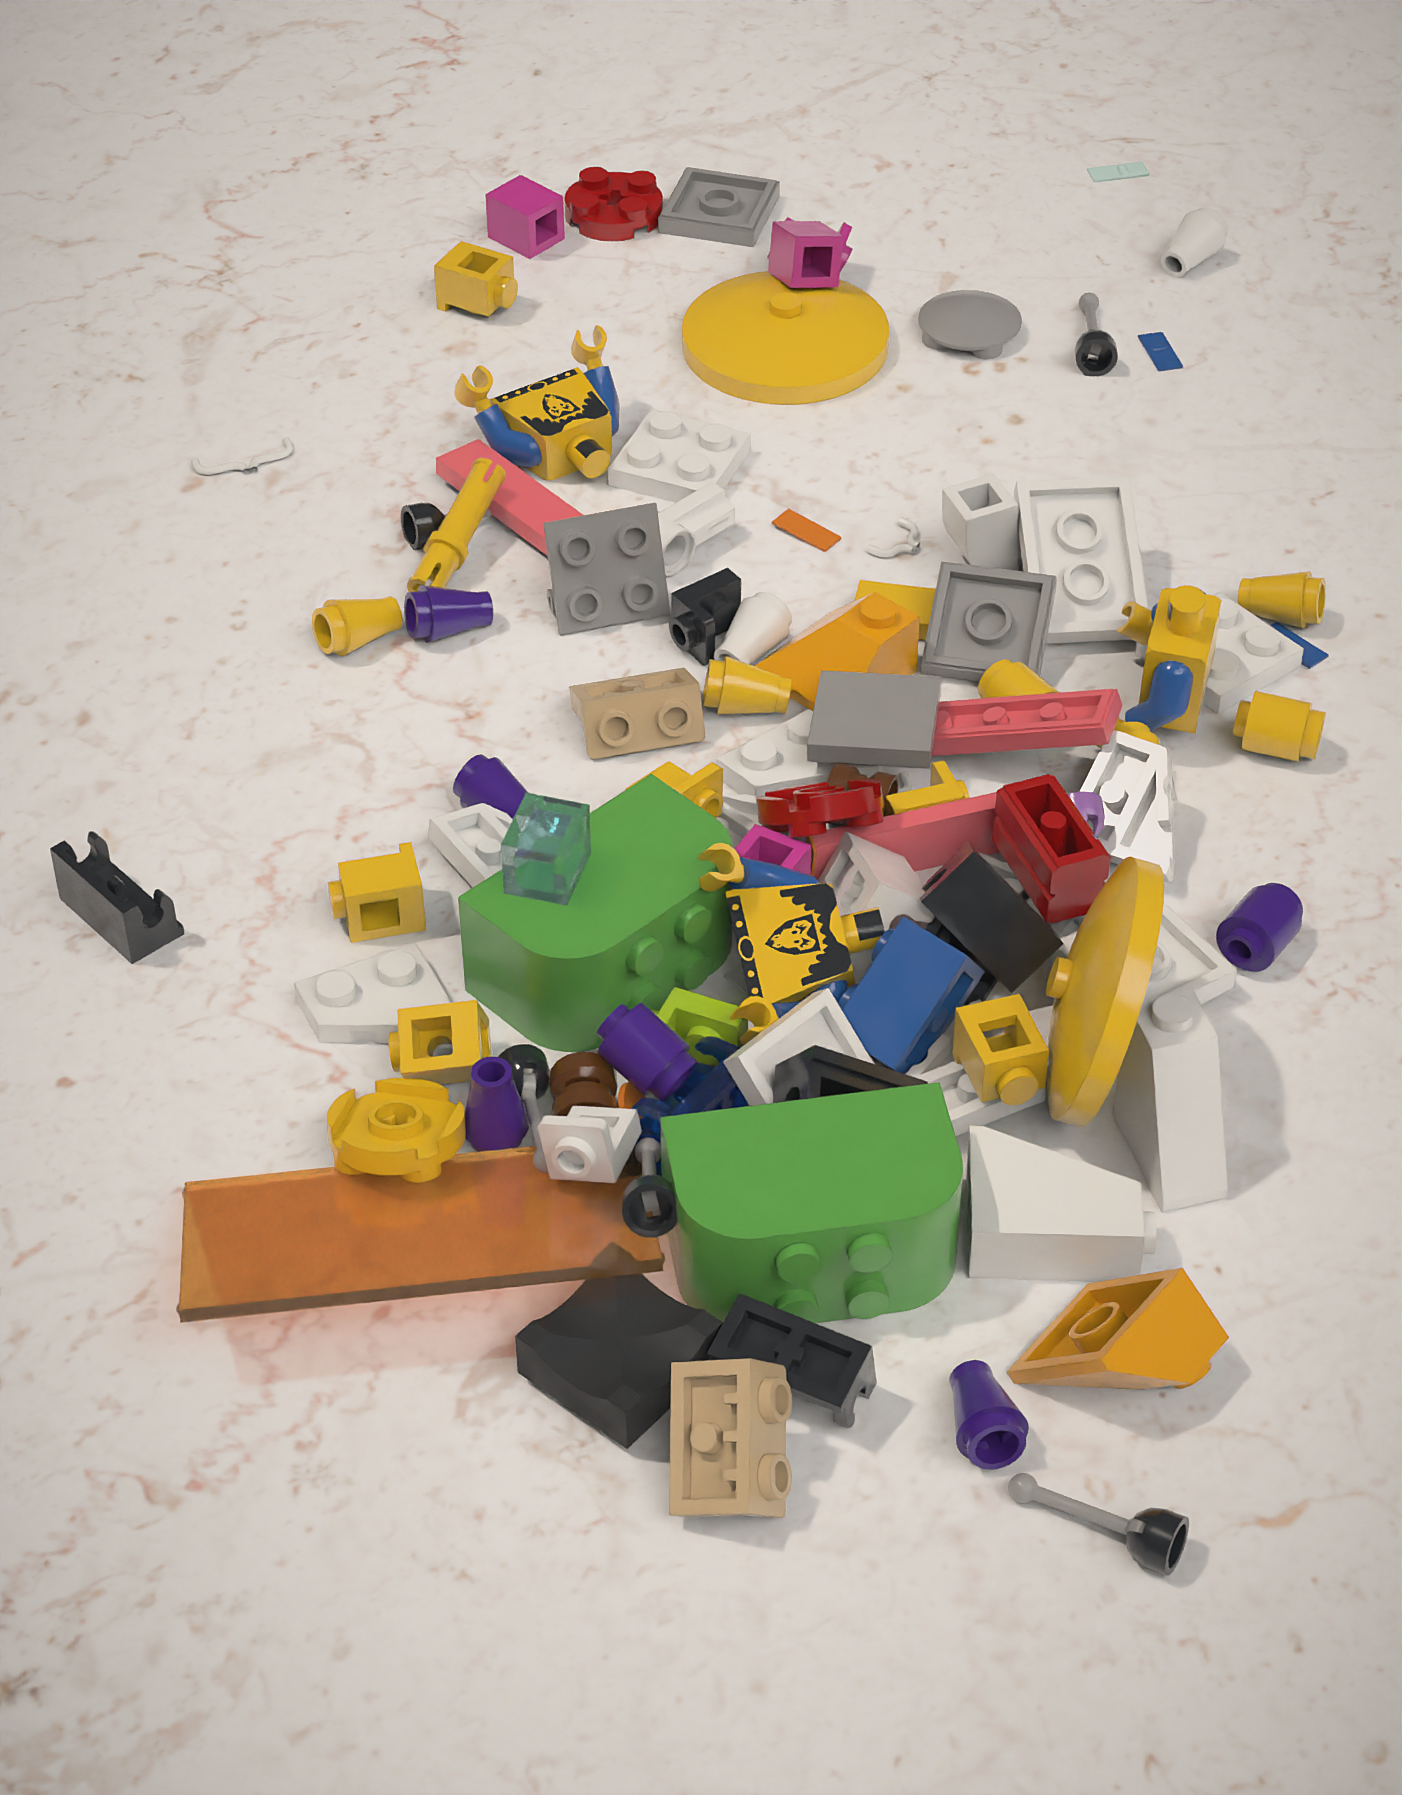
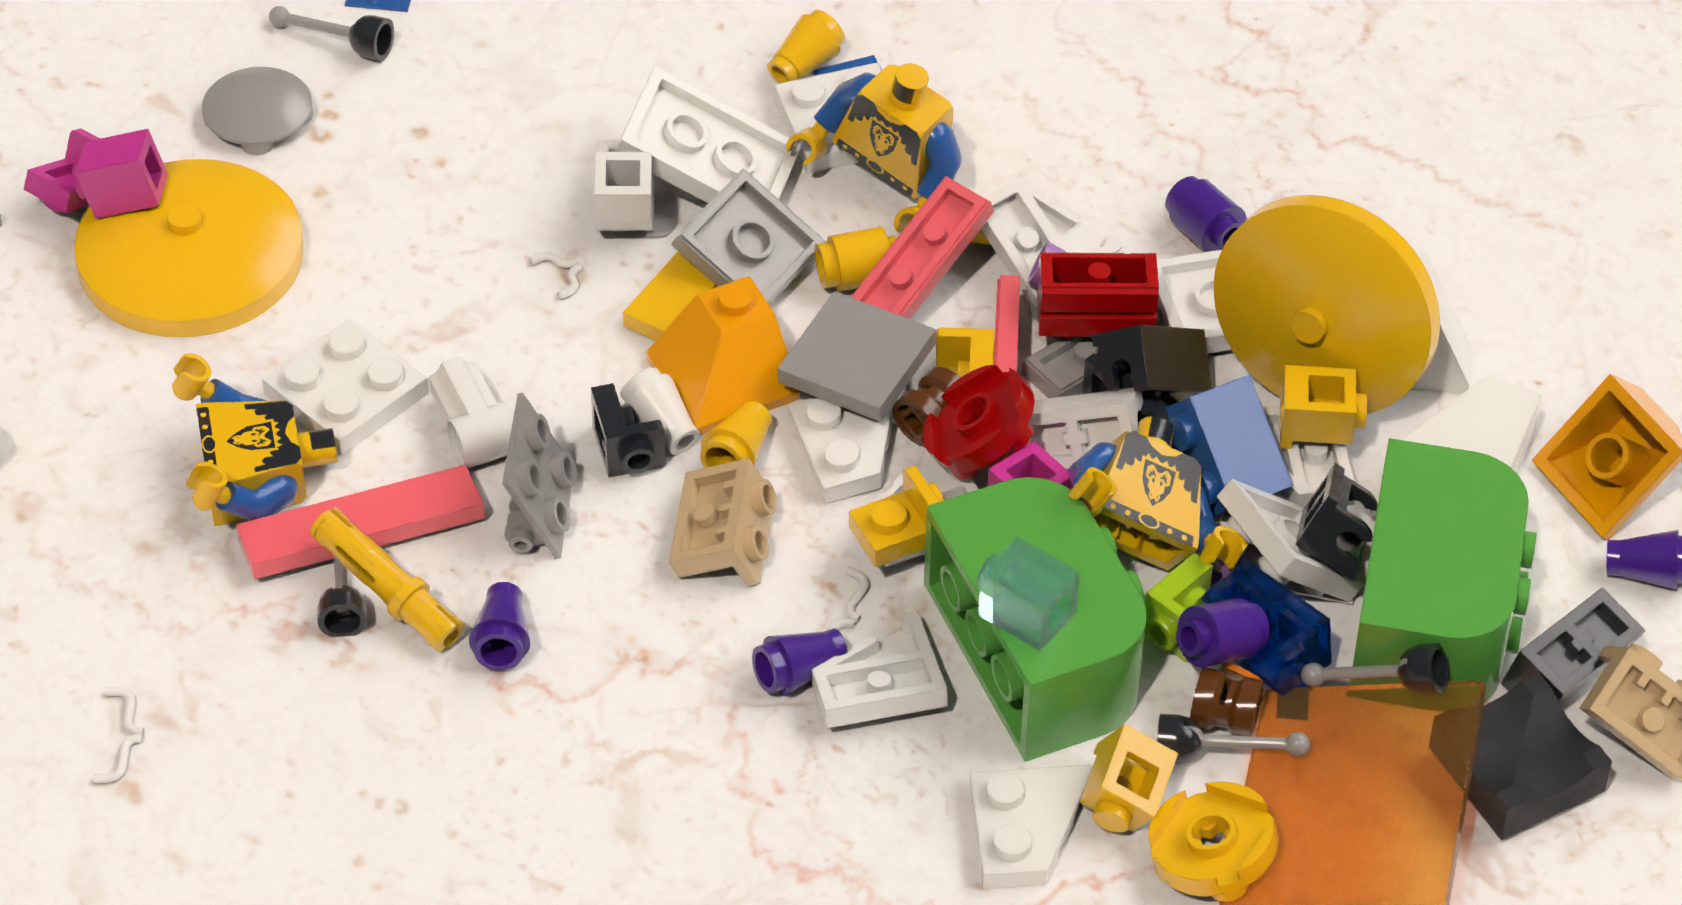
camera: 70 degrees left, 5 degrees up
(352, 623) = (479, 705): yellow cone -> none
(379, 895) = (899, 776): yellow brick -> none
(494, 1108) = (1218, 758): dark purple cone -> none
(589, 1143) = (1310, 700): white bracket -> none
(806, 530) = (505, 331): orange piece -> none
(1279, 726) = (980, 110): yellow brick -> none

